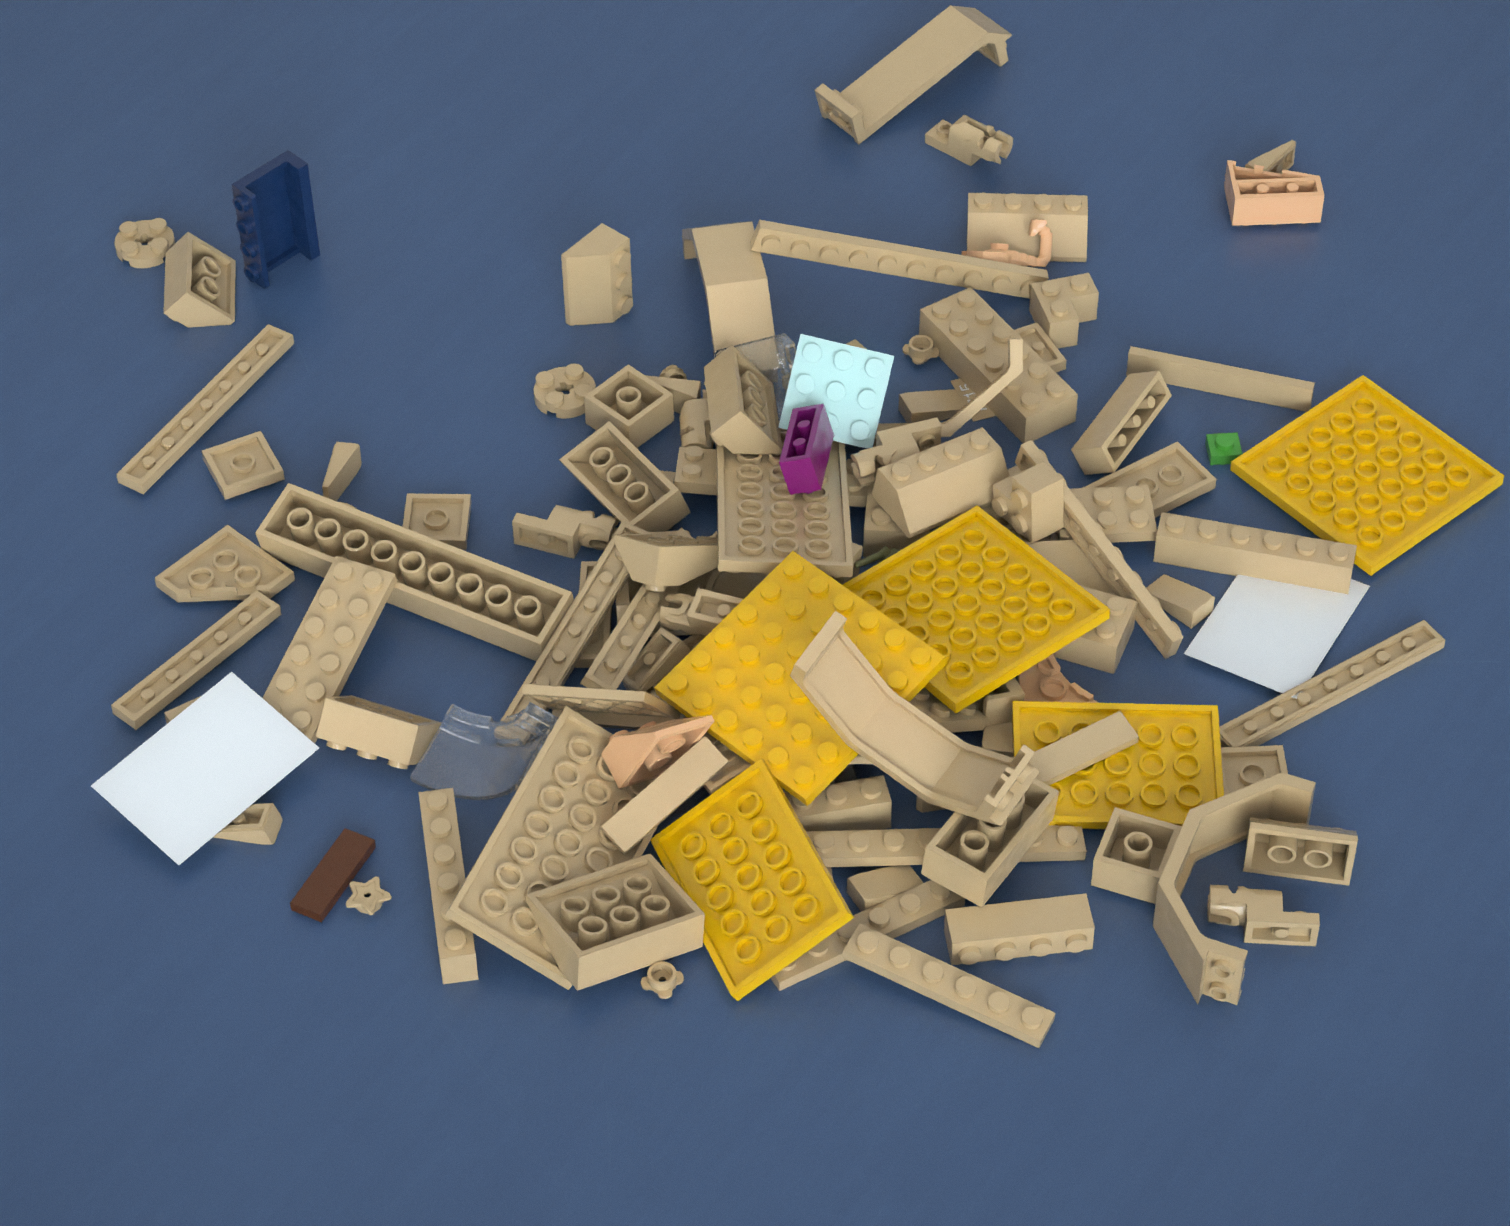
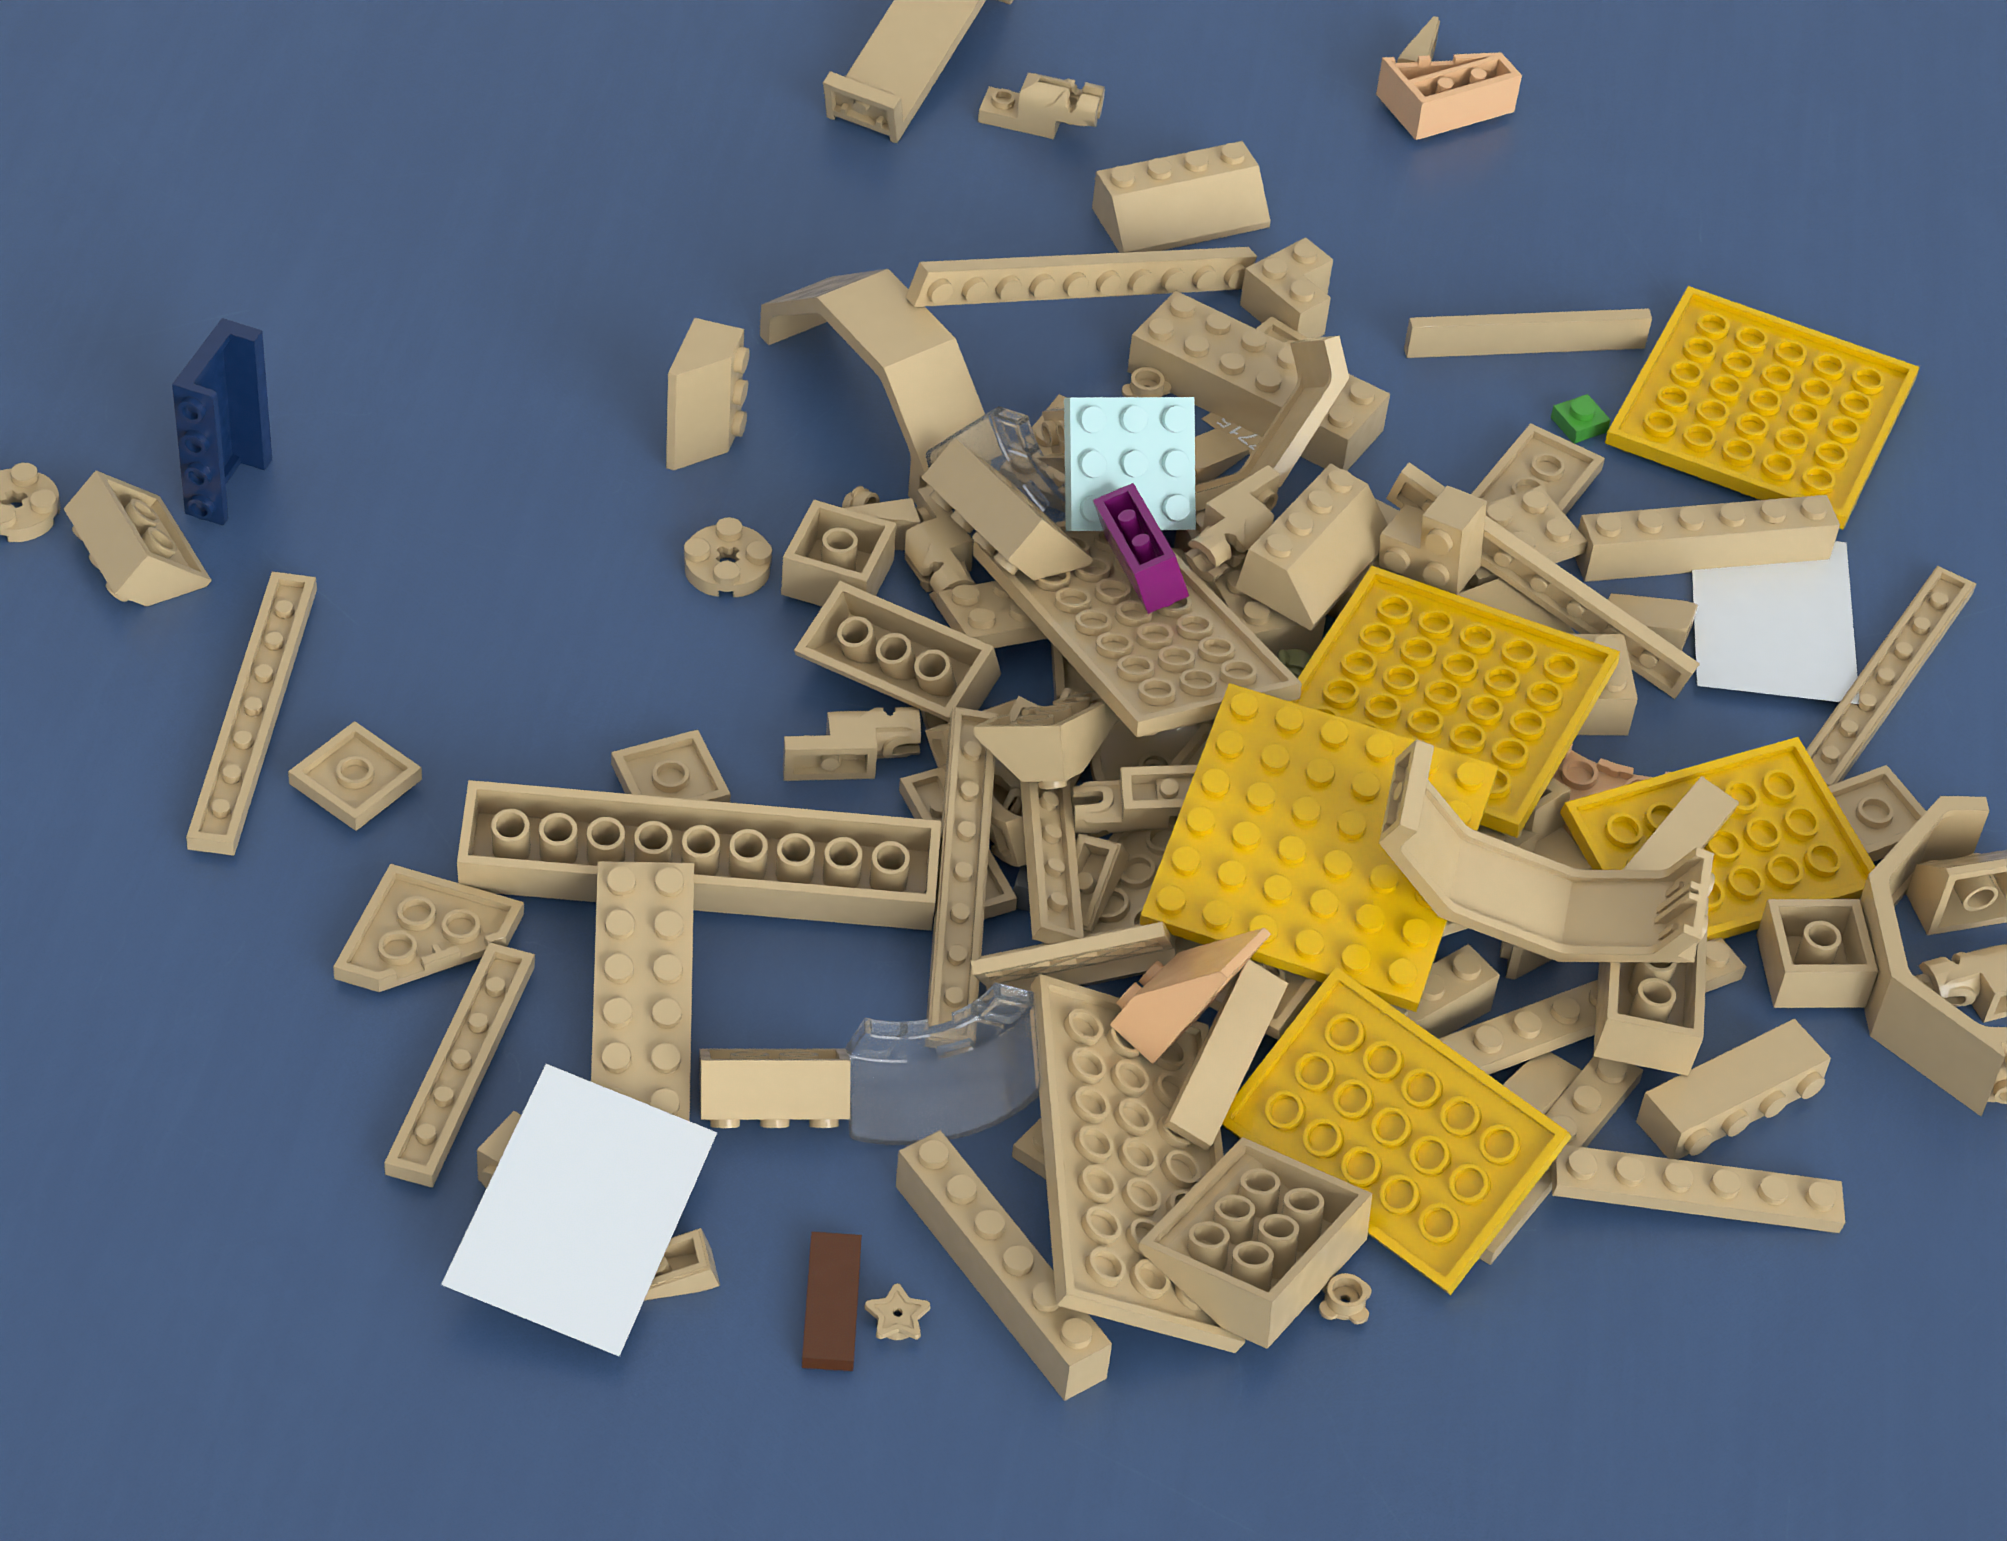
camera: 30 degrees left, 0 degrees up
(341, 469) = (496, 739): tan slope -> none
(1000, 252) = (1175, 237): light nougat animal -> none
(1121, 422) = (1454, 415): tan brick -> none

